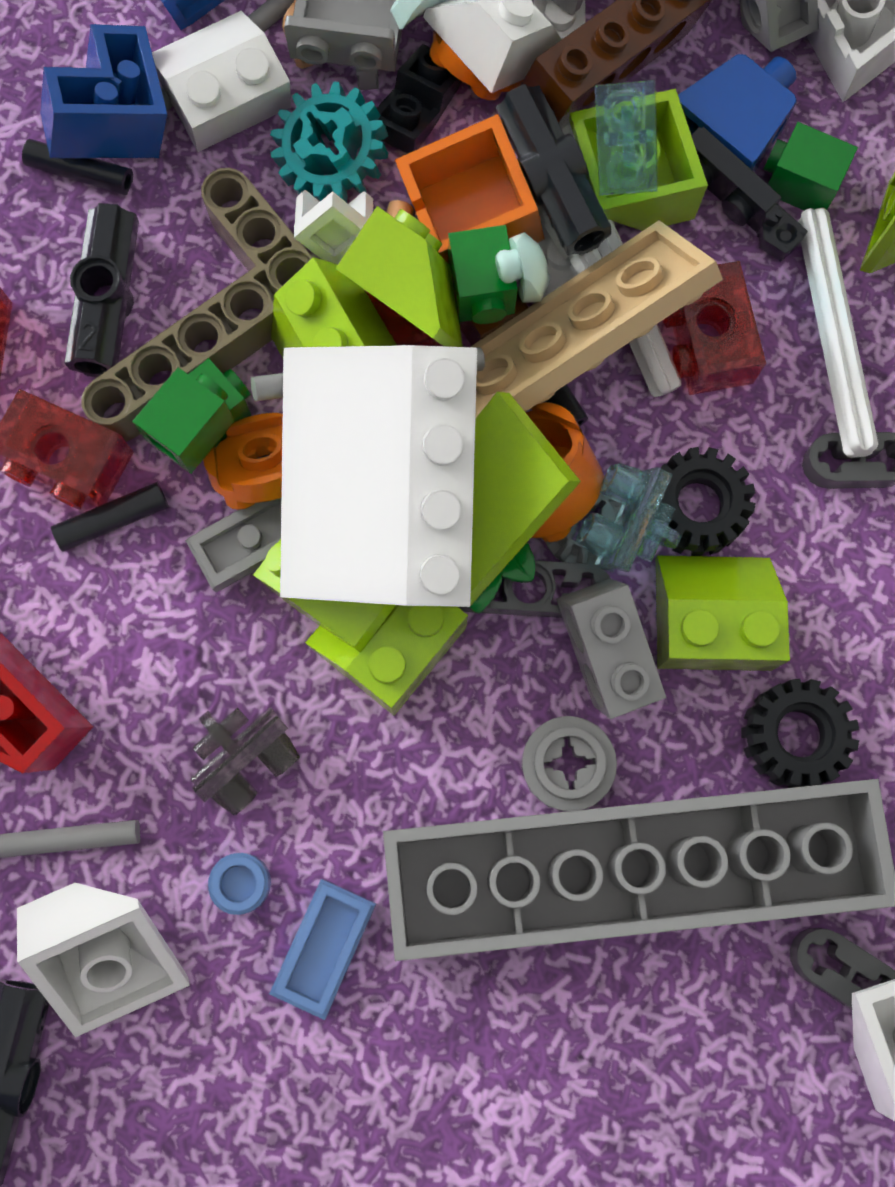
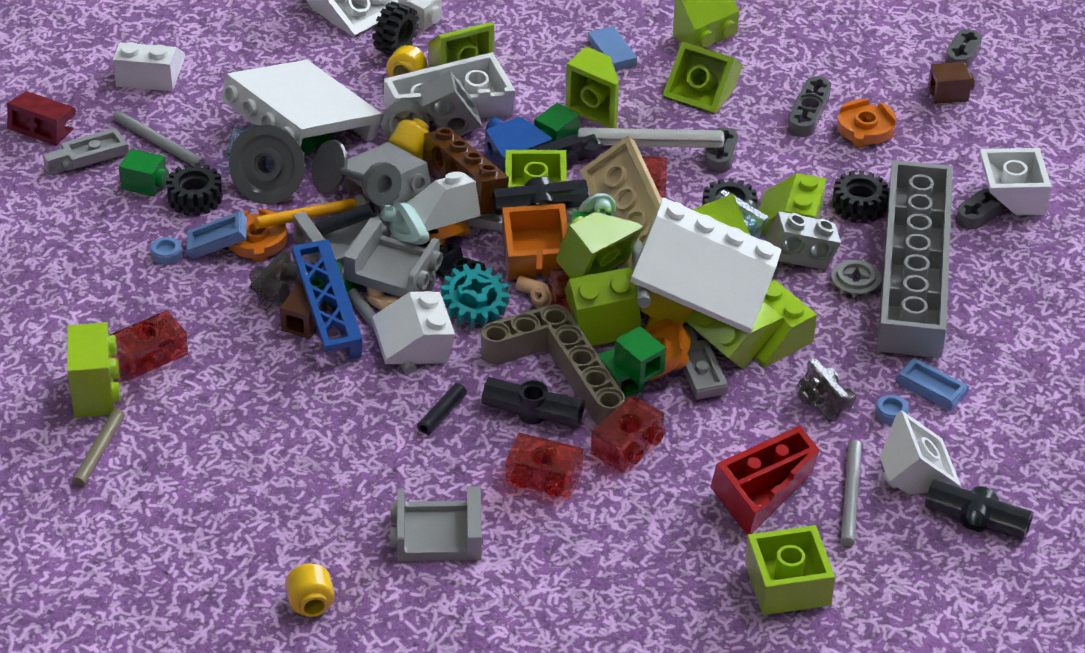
camera: 75 degrees left, 35 degrees down
(109, 517) = (672, 431): black piece -> none
(111, 104) = (414, 369): blue brick -> none
(330, 224) = (529, 295): panel -> none
(626, 137) = (541, 158): clear light blue hips -> none

